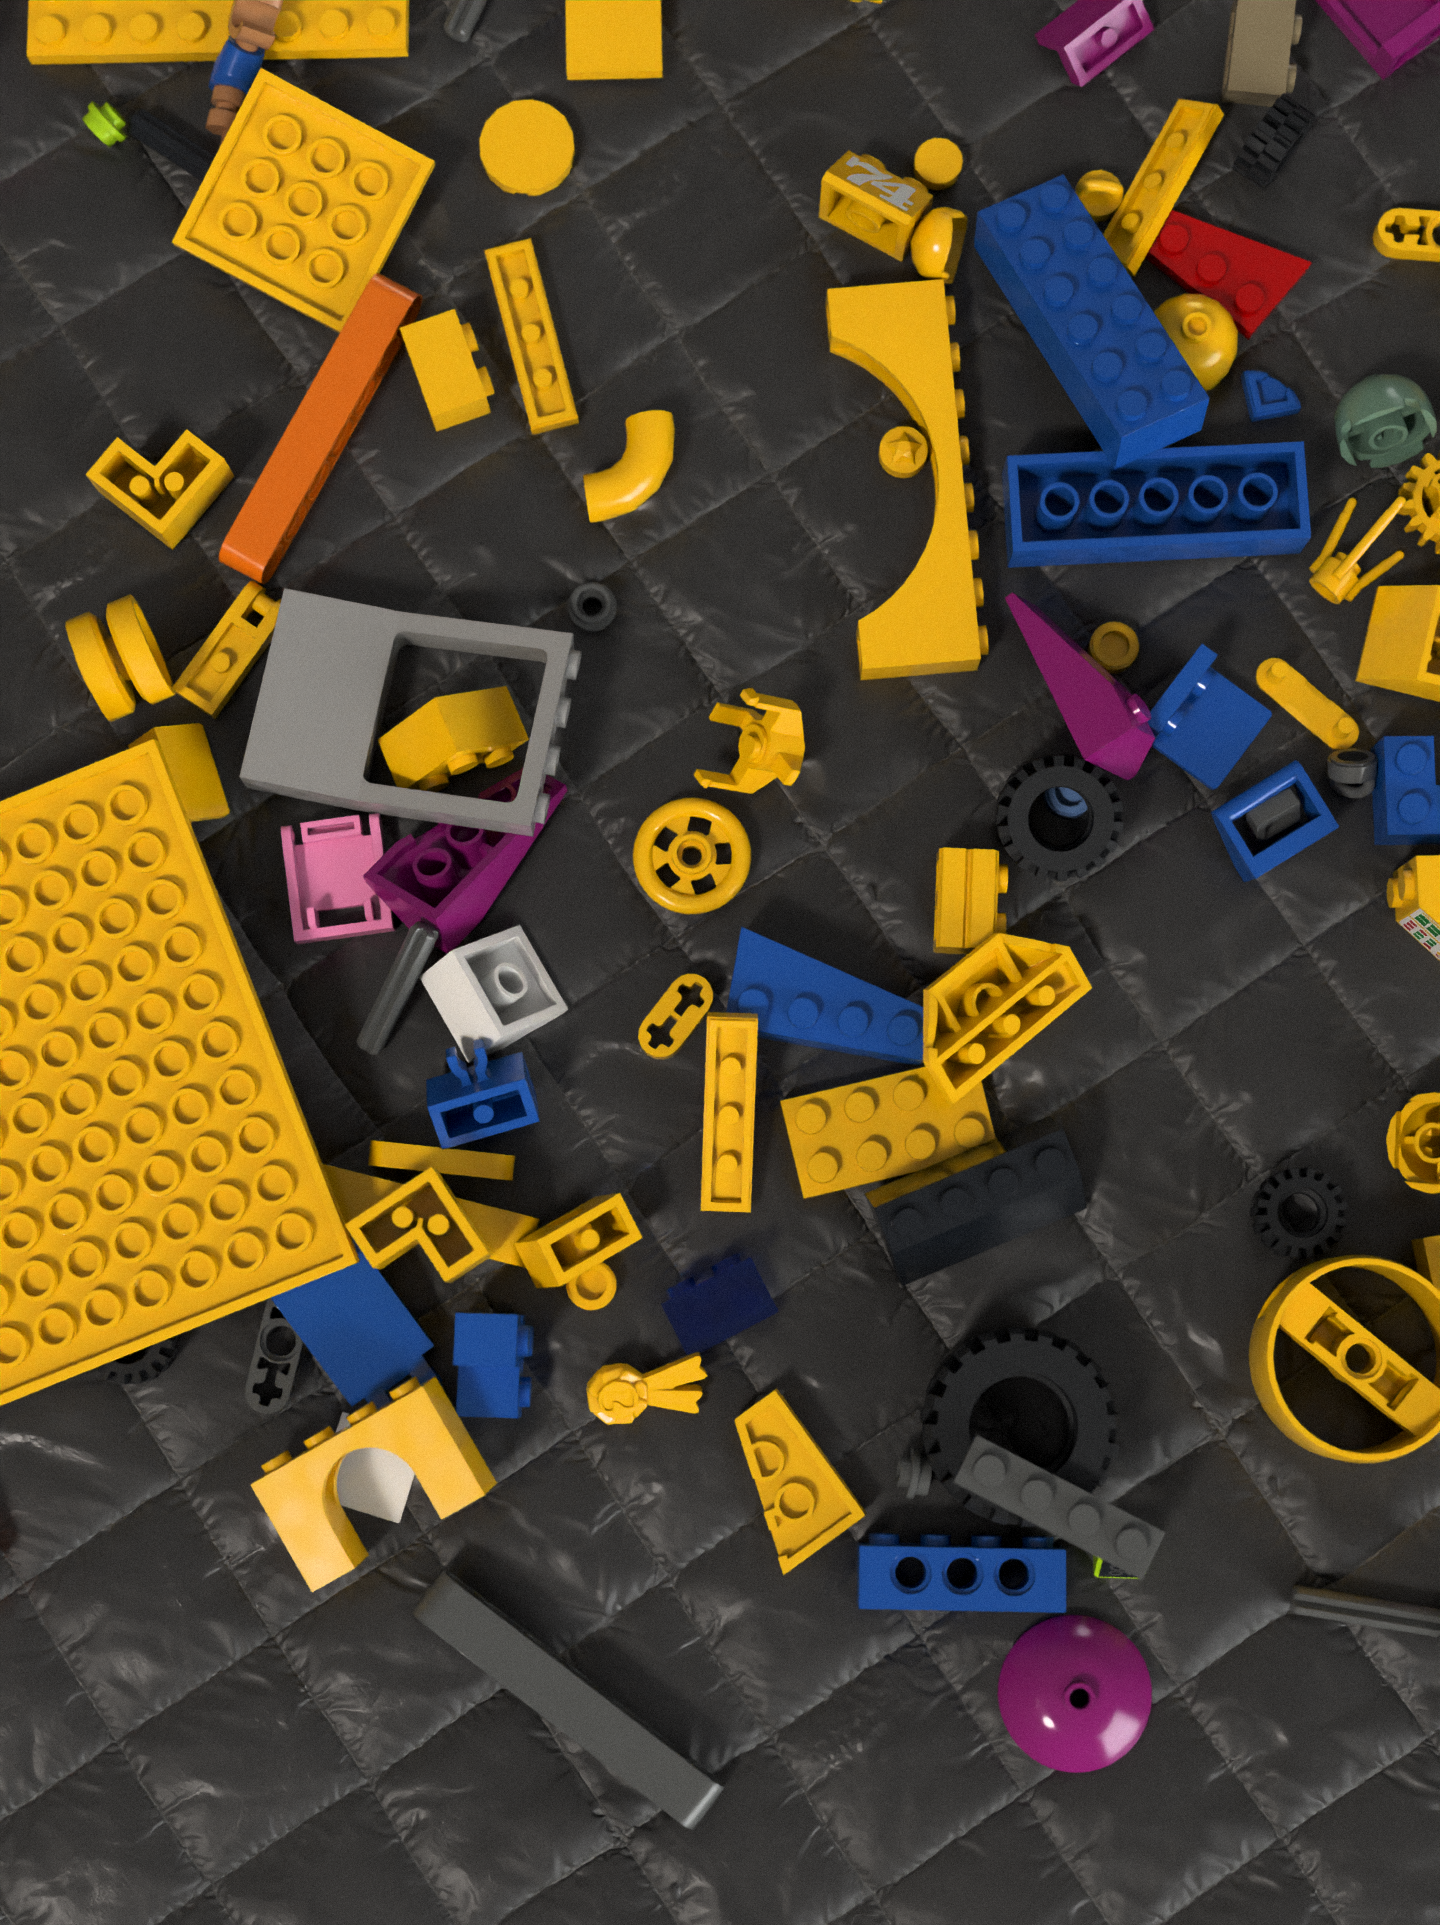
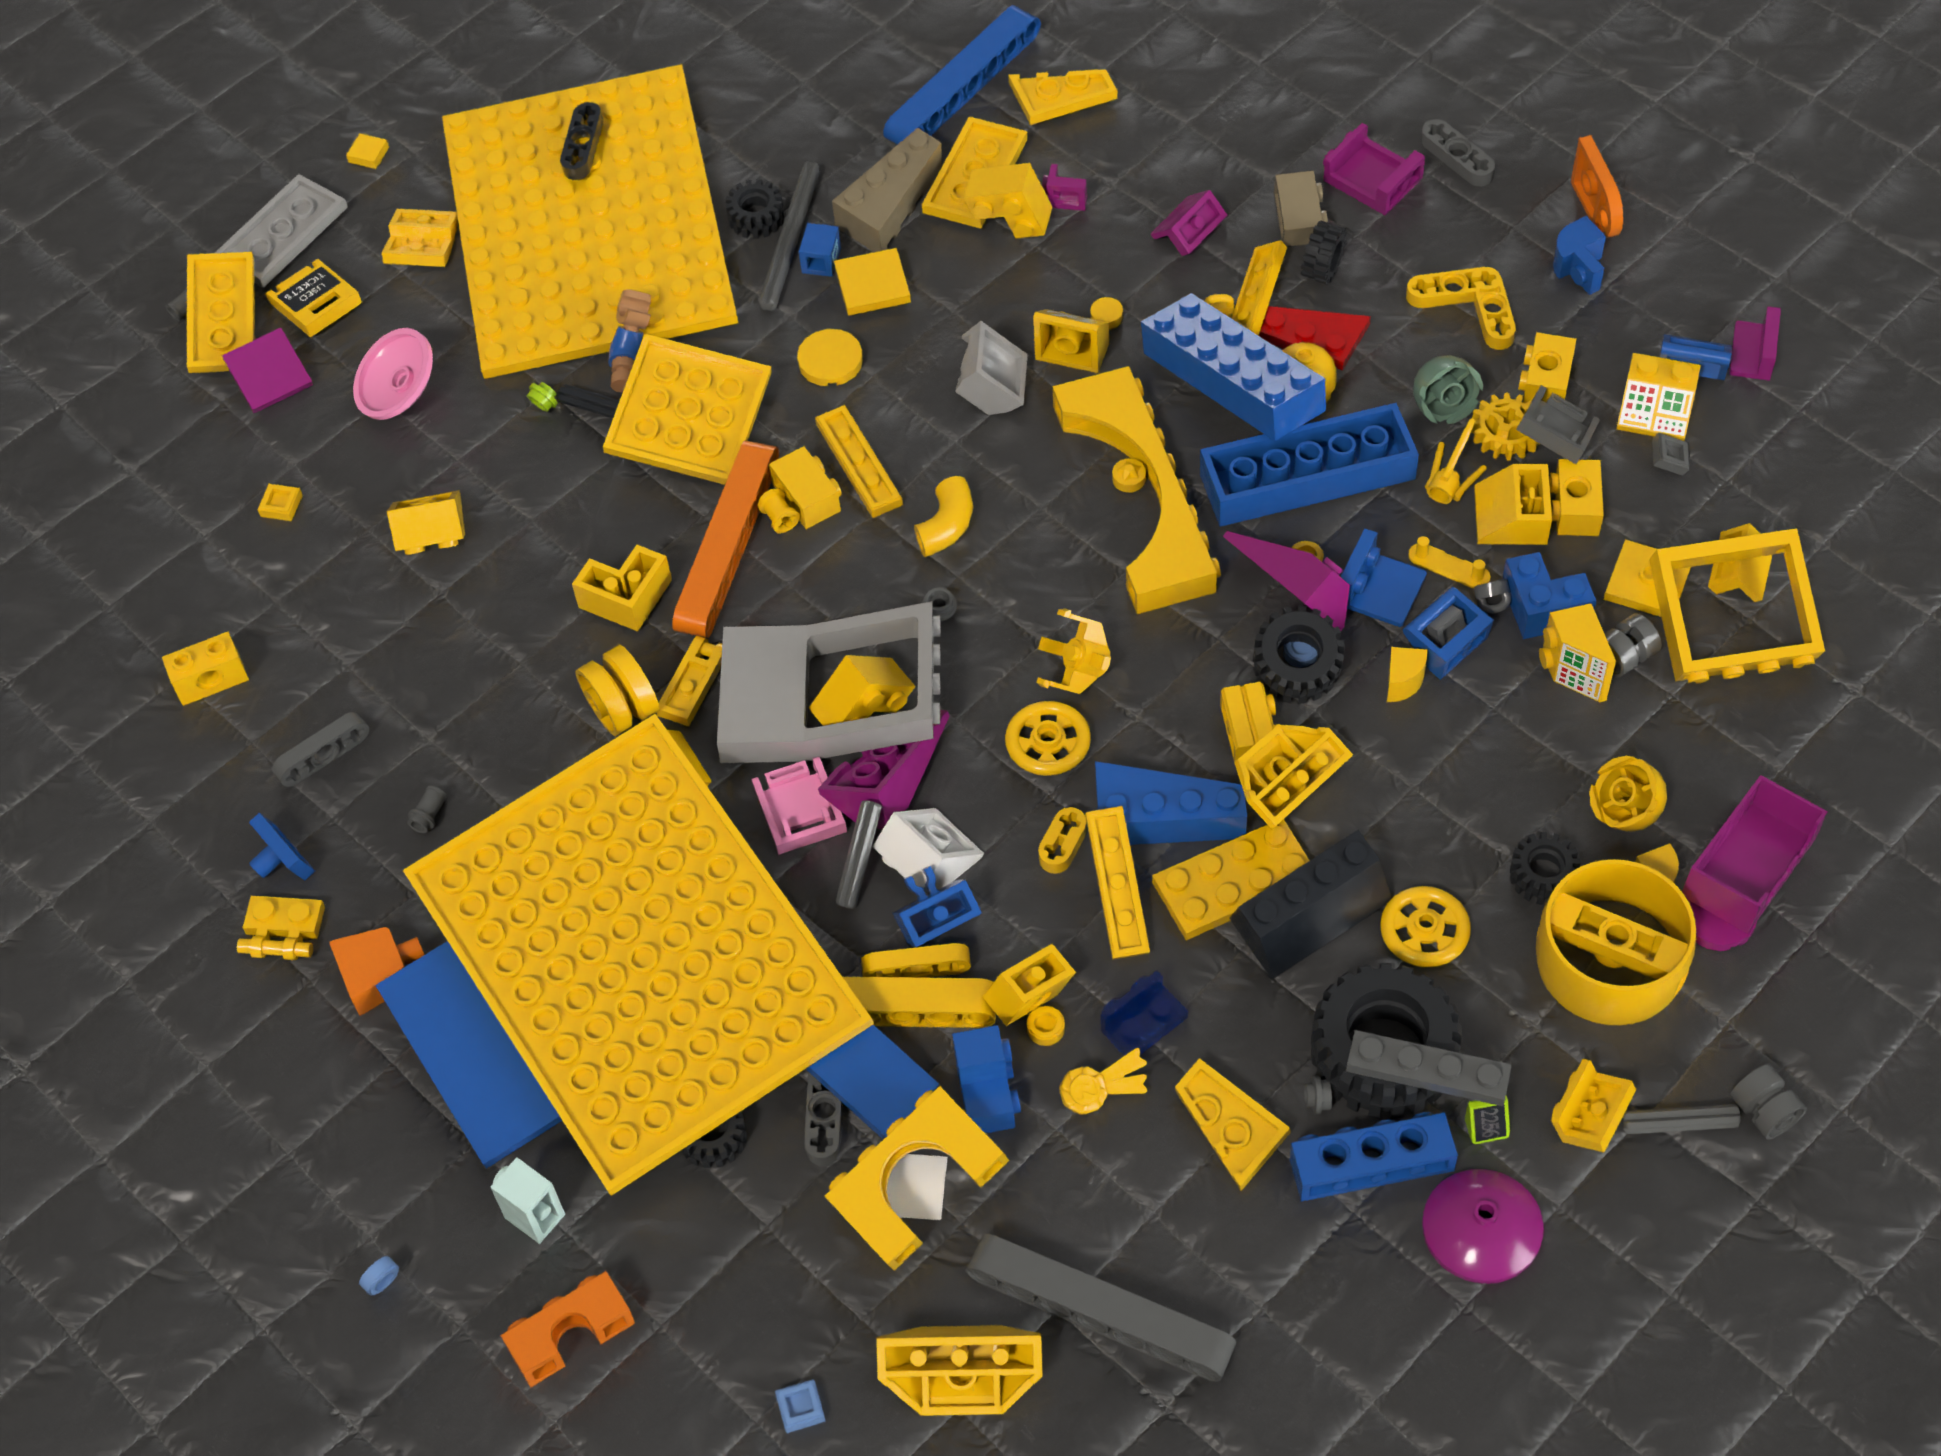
camera: 10 degrees left, 25 degrees down
(172, 1736) = (800, 1406): none -> medium blue tile
(375, 1740) = (960, 1367): none -> yellow wedge
(401, 399) = (781, 514): none -> yellow bush
(425, 1215) = (914, 981): yellow brick -> none
(748, 239) = (992, 371): none -> light grey brick
(939, 243) = (1119, 348): yellow hair -> none
(1090, 1287) = (1410, 950): none -> yellow plate
(1197, 870) = (1405, 672): none -> yellow brick
(1258, 1575) = (1591, 1107): none -> yellow bracket
(1267, 396) = (1365, 397): blue tile -> none

